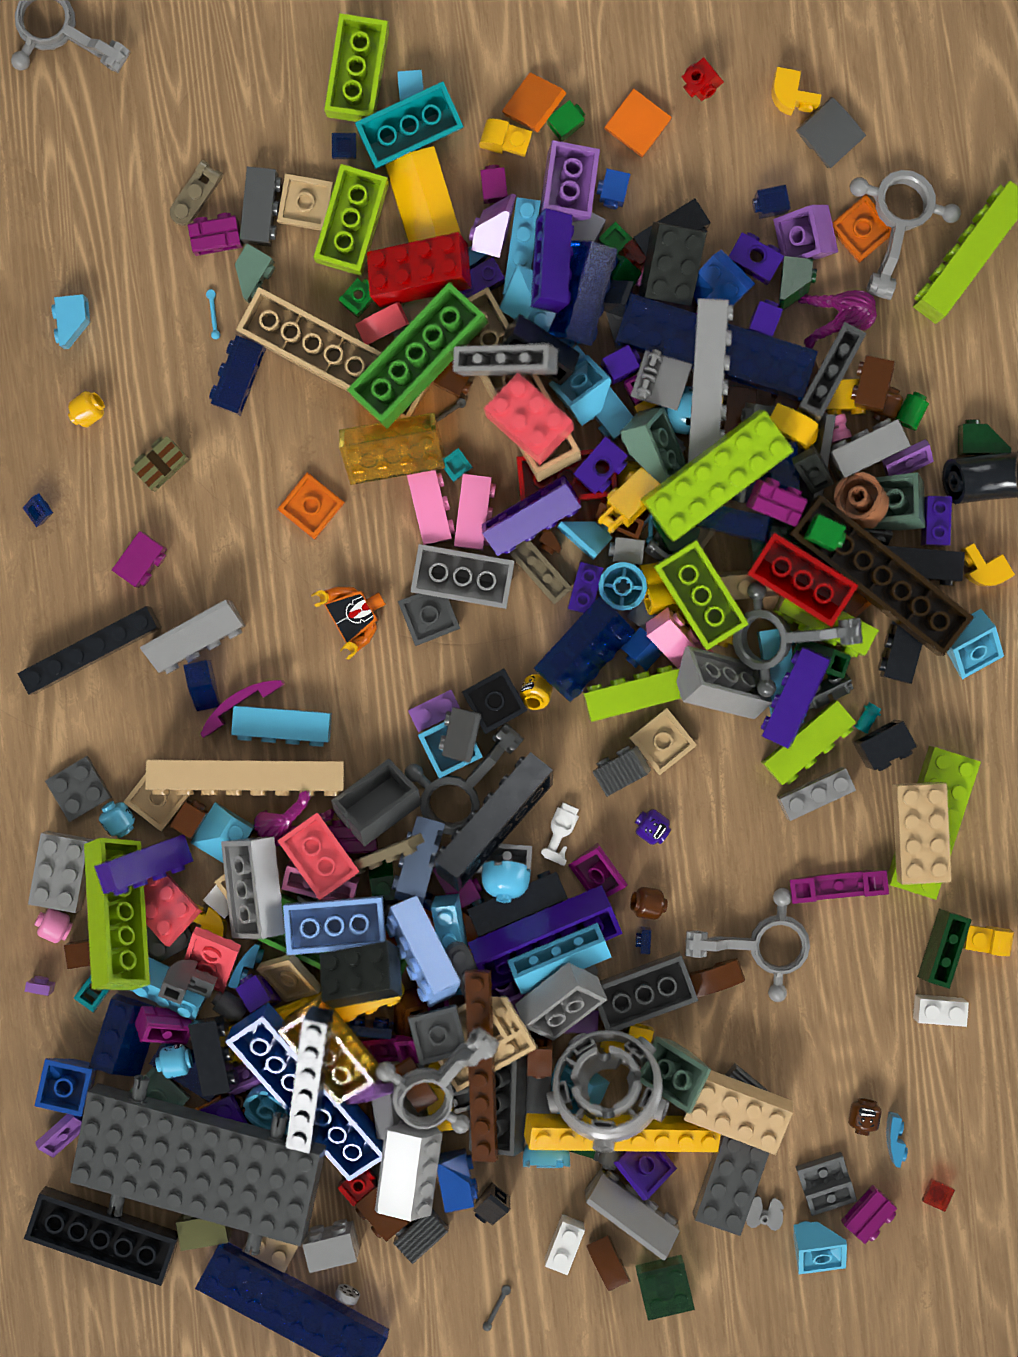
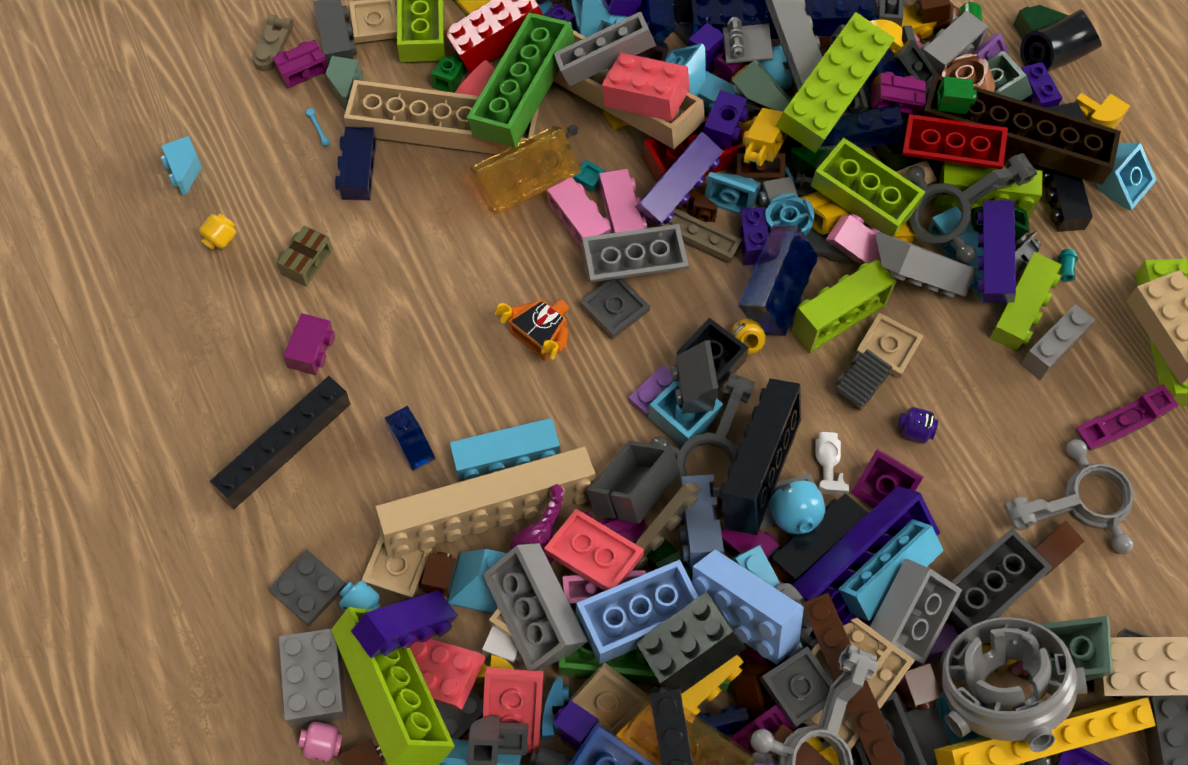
camera: 20 degrees left, 25 degrees down
(37, 510) = (191, 332): clear blue plate -> none
(194, 636) = (385, 390): light grey slope -> none
(215, 721) = (476, 421): magenta slope -> none
(311, 505) = (464, 251): orange tile -> none
(453, 382) = (559, 105): reddish brown slope -> none
(641, 650) = (831, 267): blue brick -> none
(643, 940) = (964, 536): clear blue plate -> none
(648, 903) = (950, 497): reddish brown head -> none
(885, 745) = (1099, 275): black brick -> none

